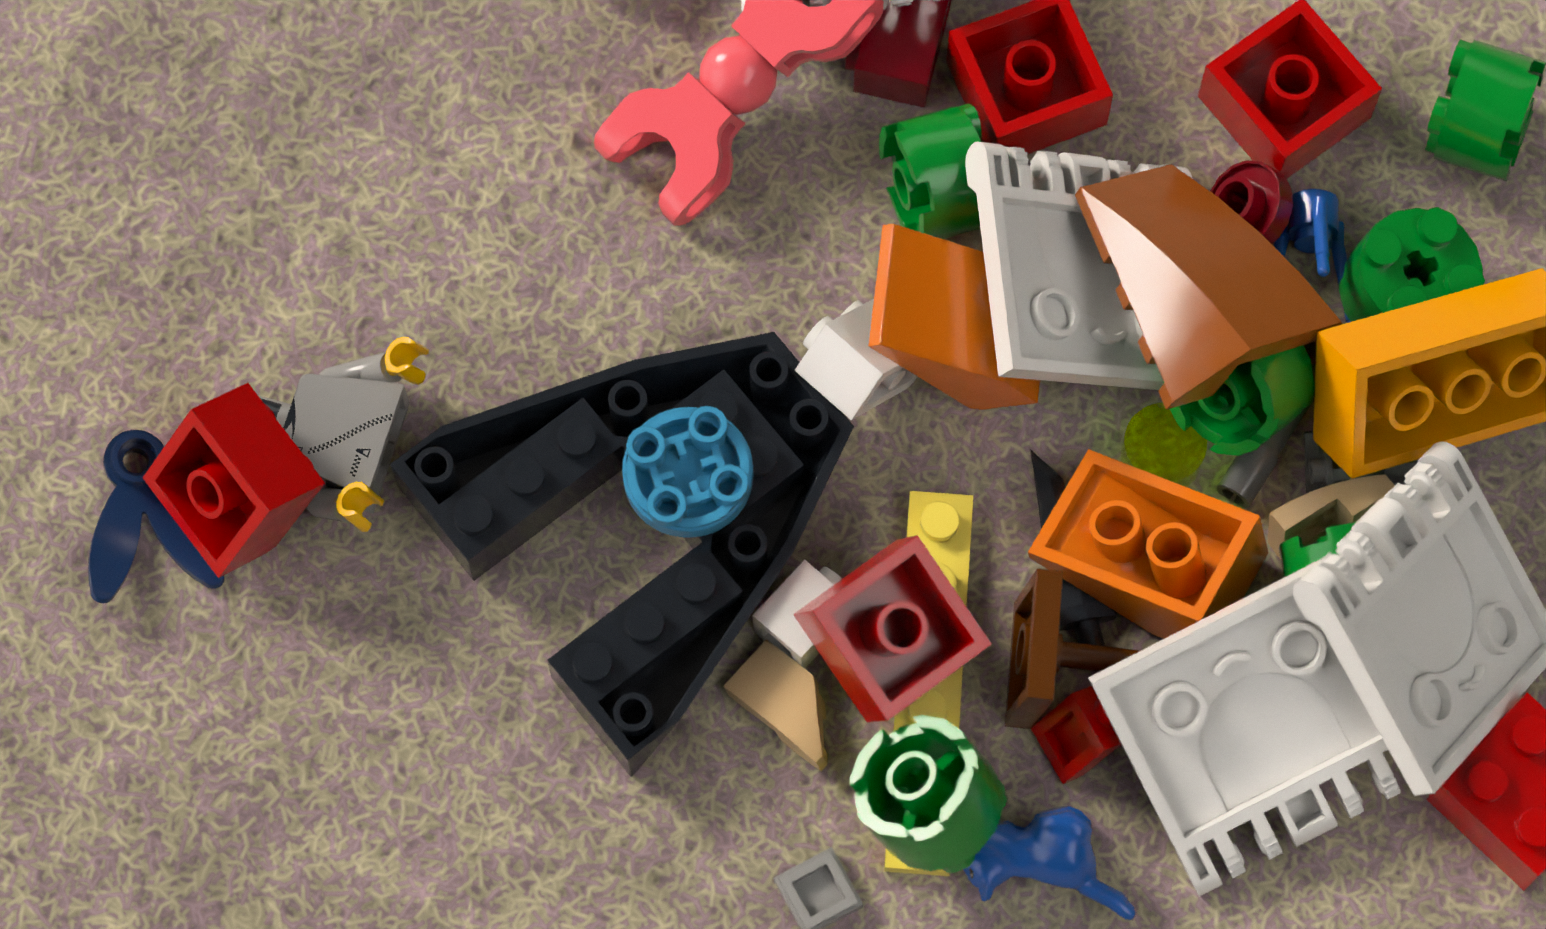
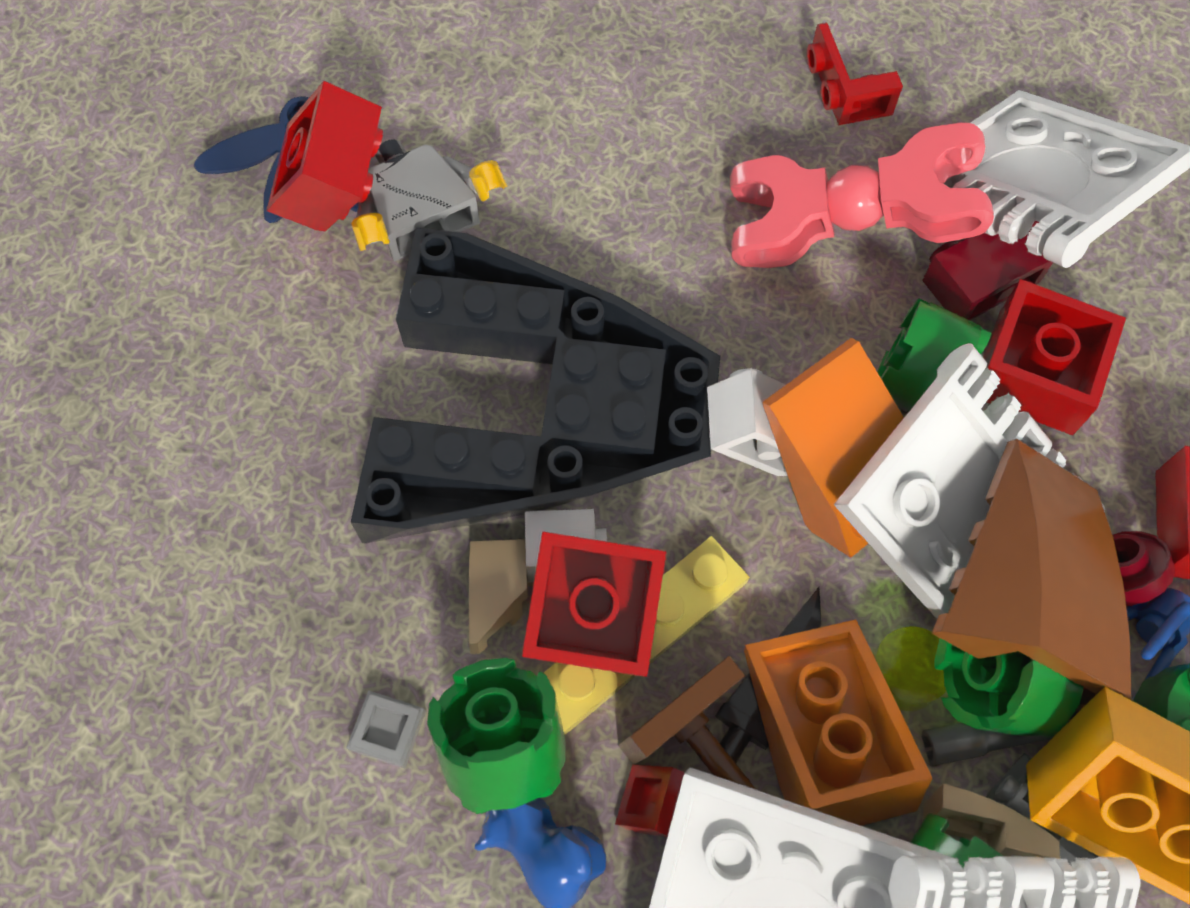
camera: 45 degrees right, 5 degrees down
(687, 471) = (573, 382): dark azure tile -> none

